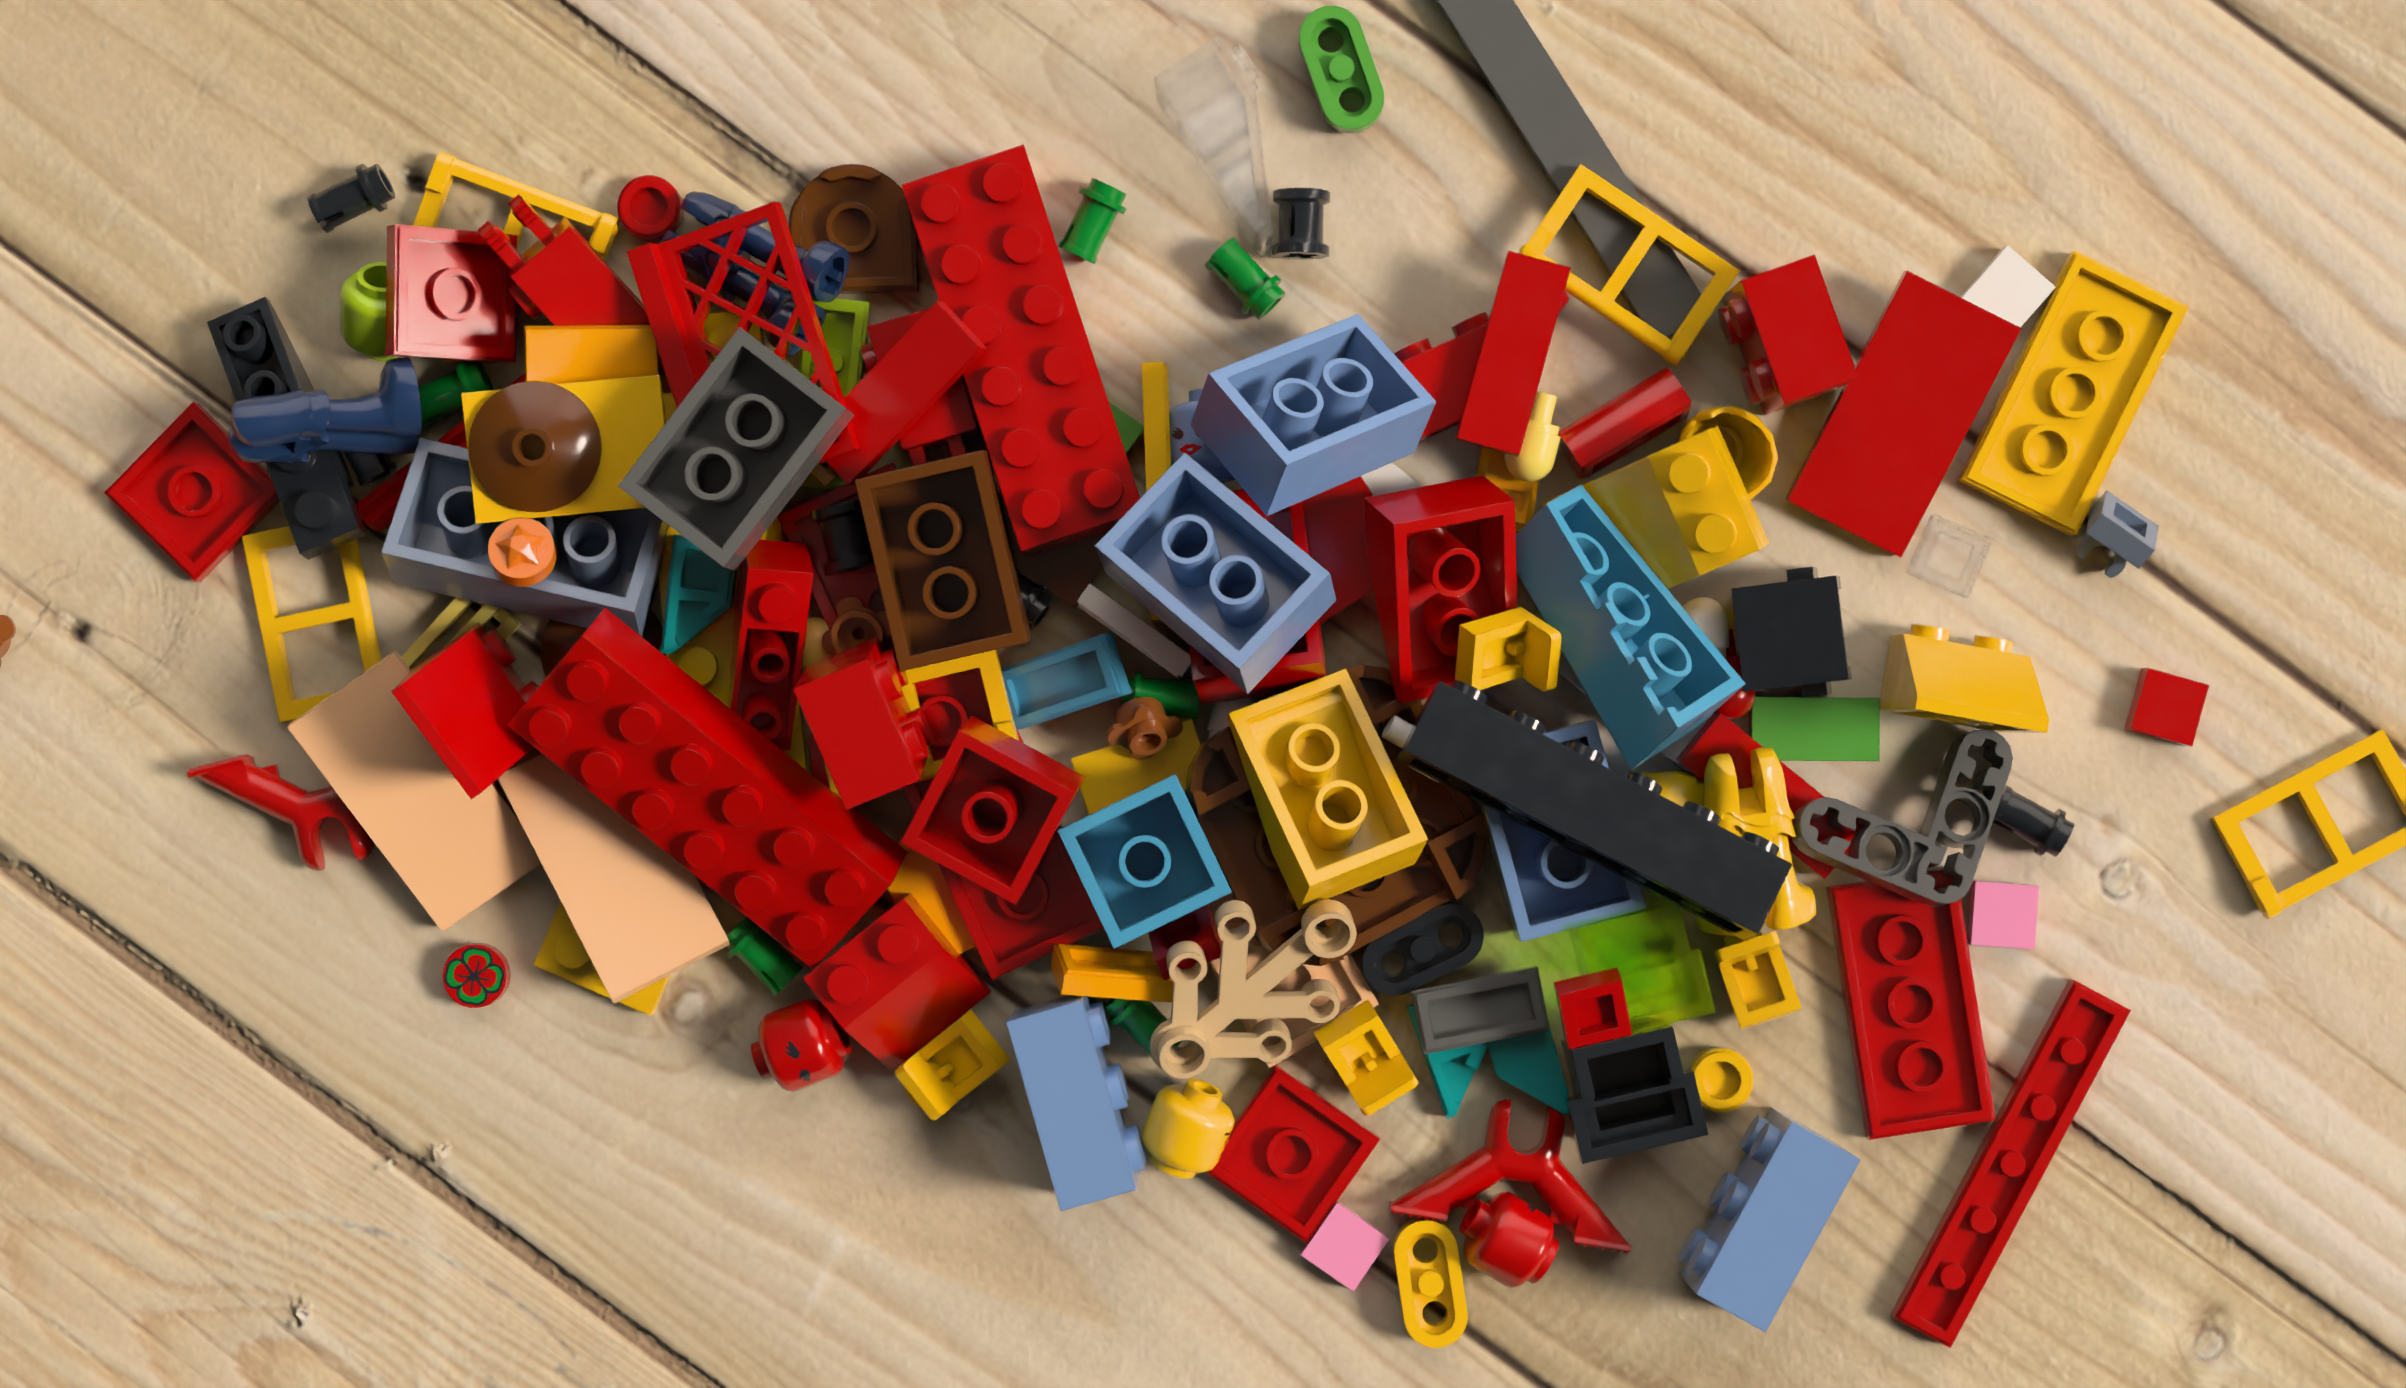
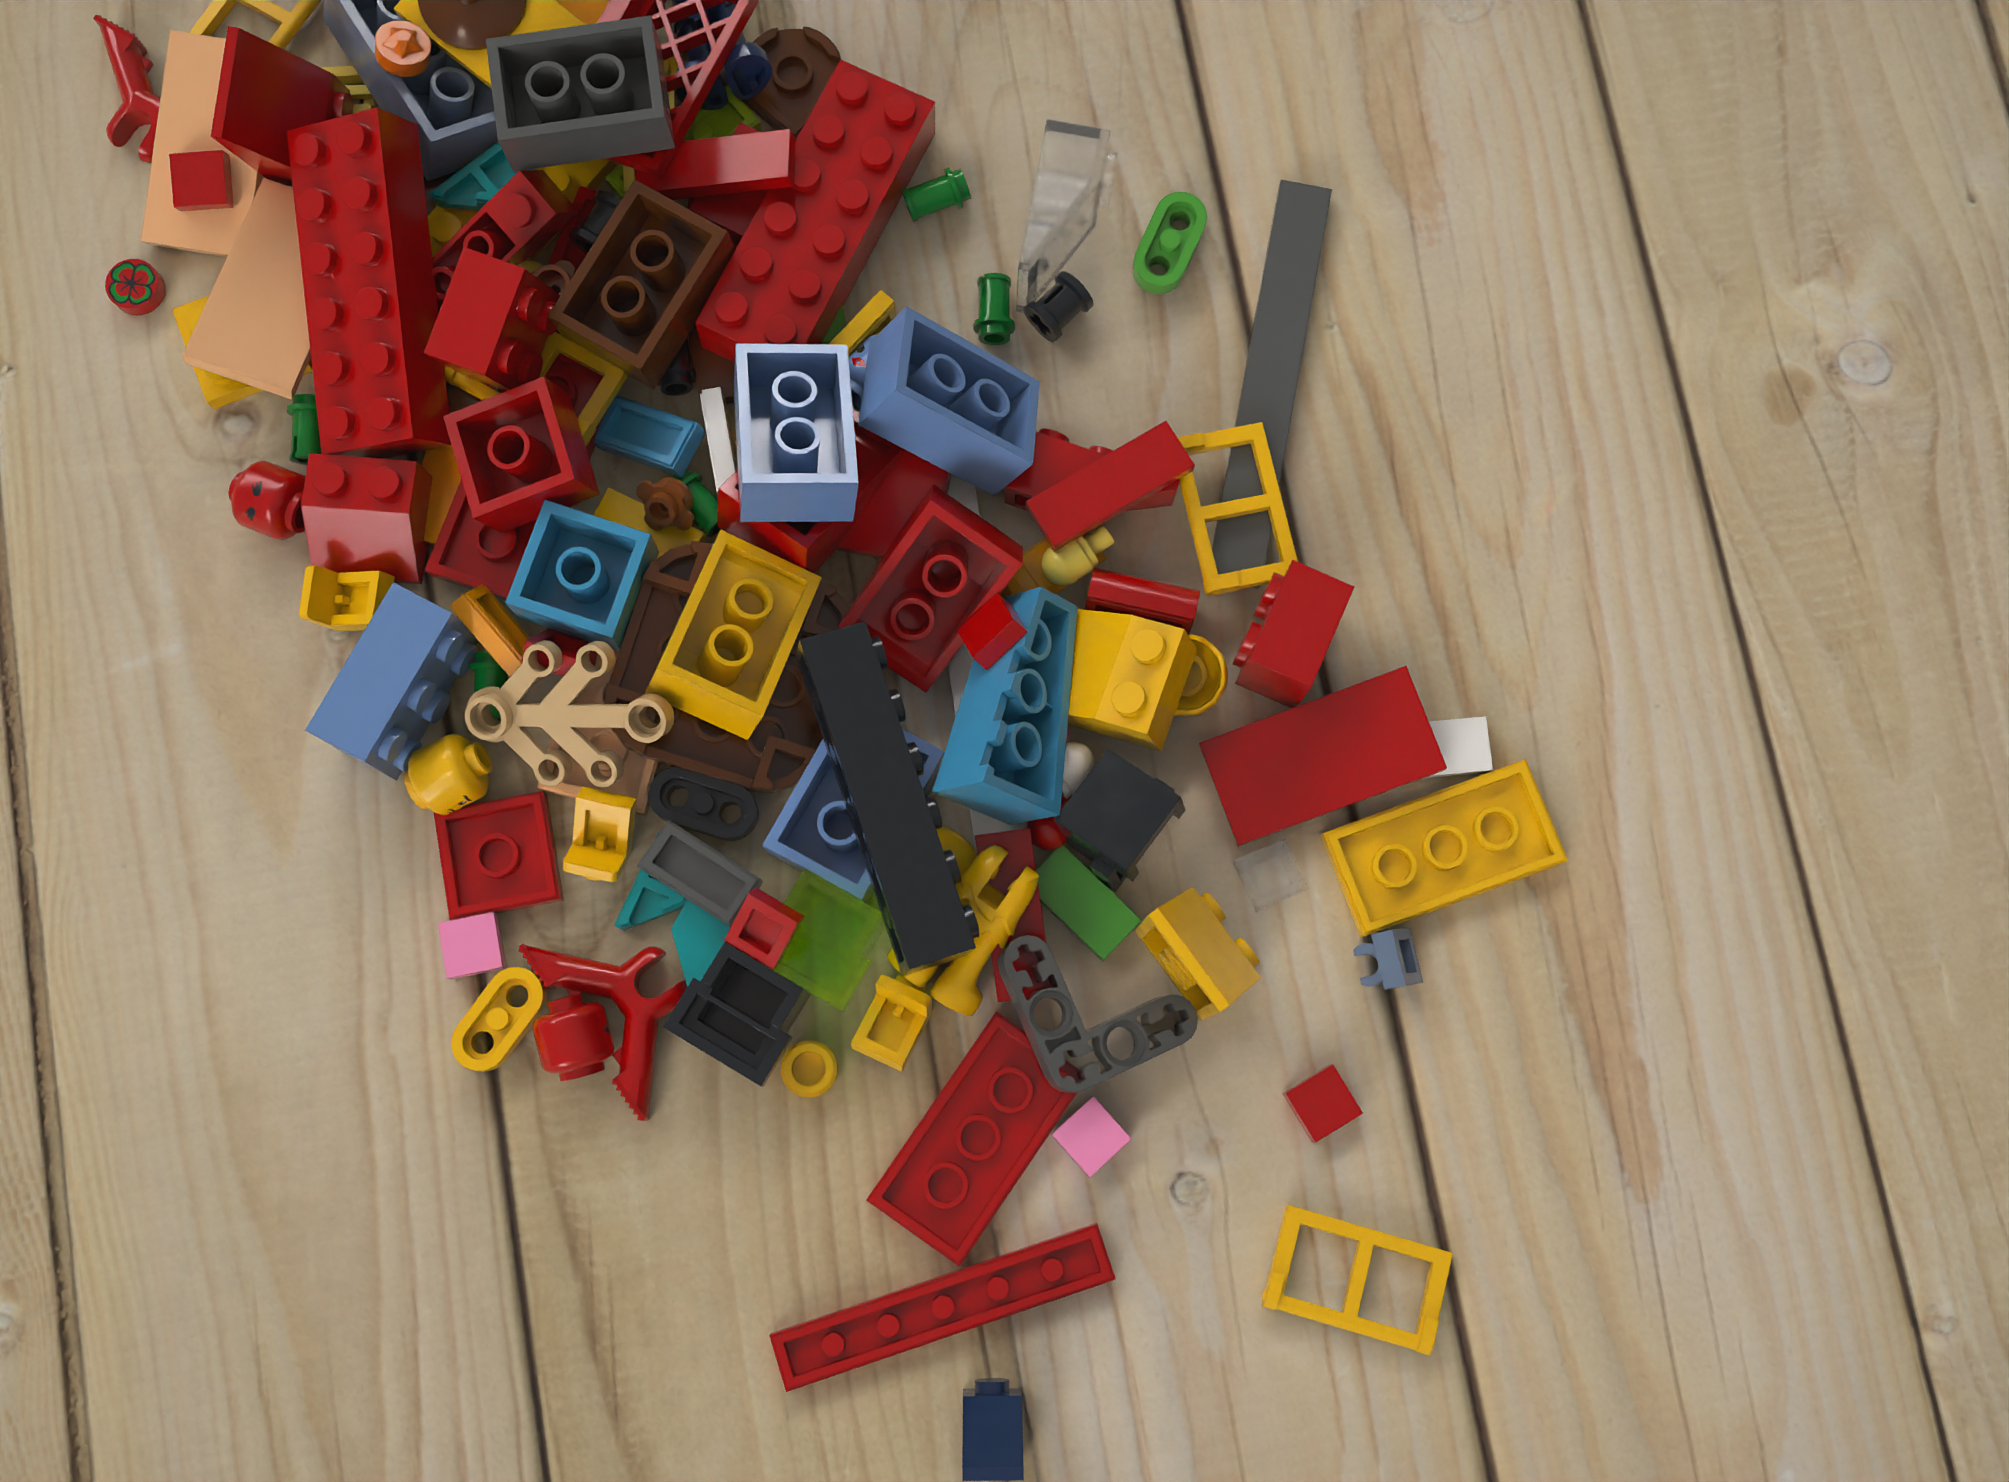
camera: 40 degrees right, 10 degrees down
(449, 831) = (201, 180): none -> red tile
(1508, 648) = (929, 655): yellow bracket -> none
(1541, 581) = (992, 631): none -> red tile
(1766, 1218) = (743, 1177): medium blue brick -> none
(2033, 822) = (1165, 1092): black pin -> none
(2150, 1224) = (992, 1432): none -> dark blue slope

